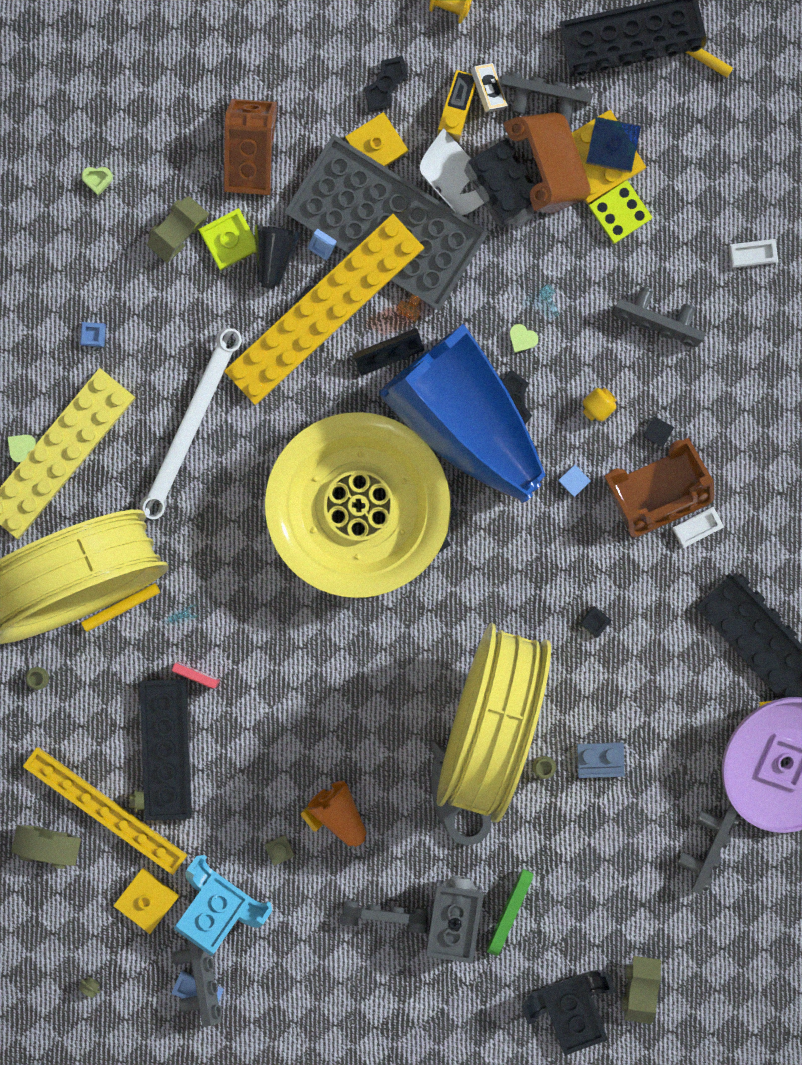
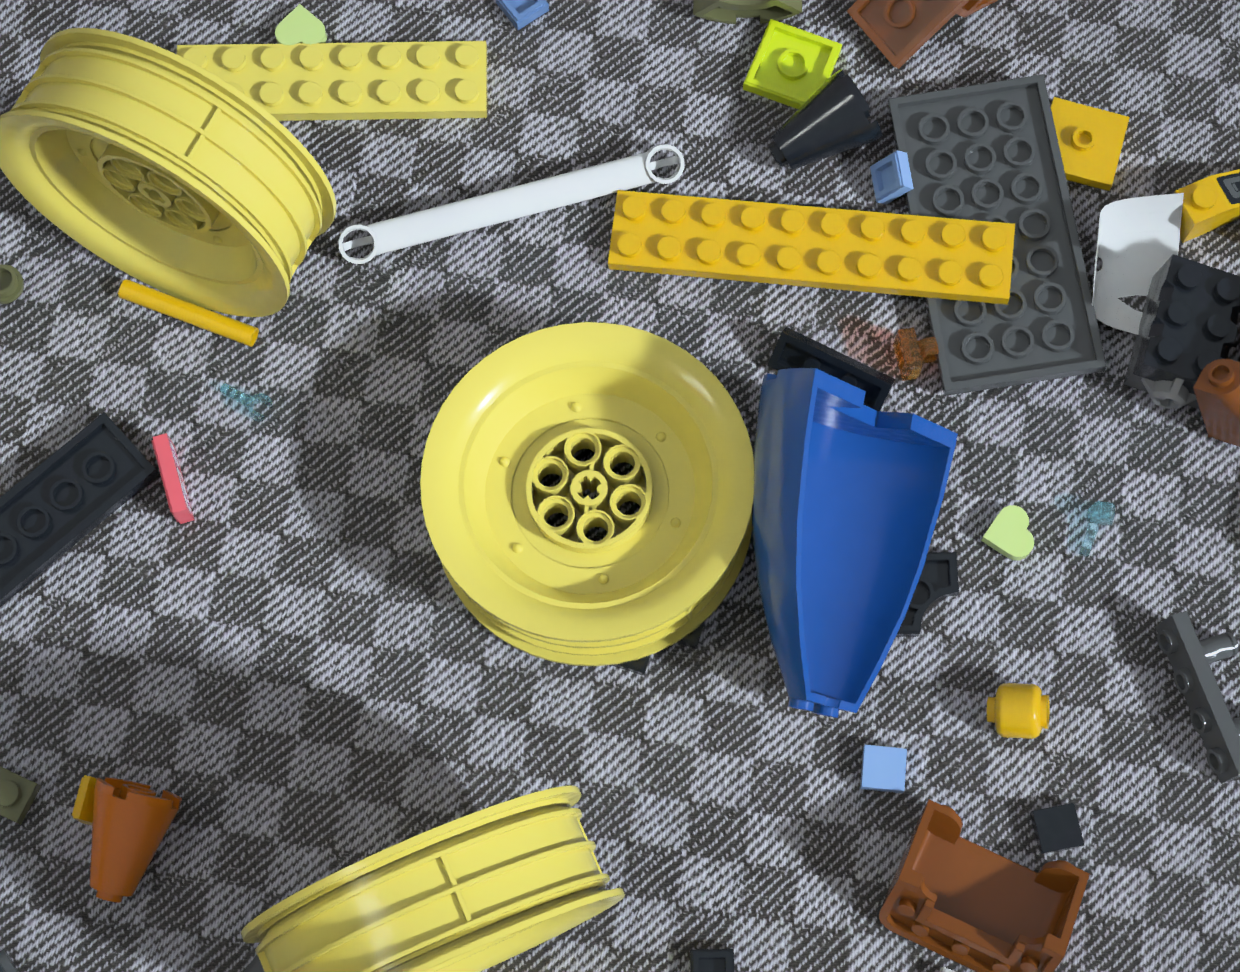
camera: 50 degrees right, 15 degrees down
(380, 92) = (1151, 95): black tile -> none

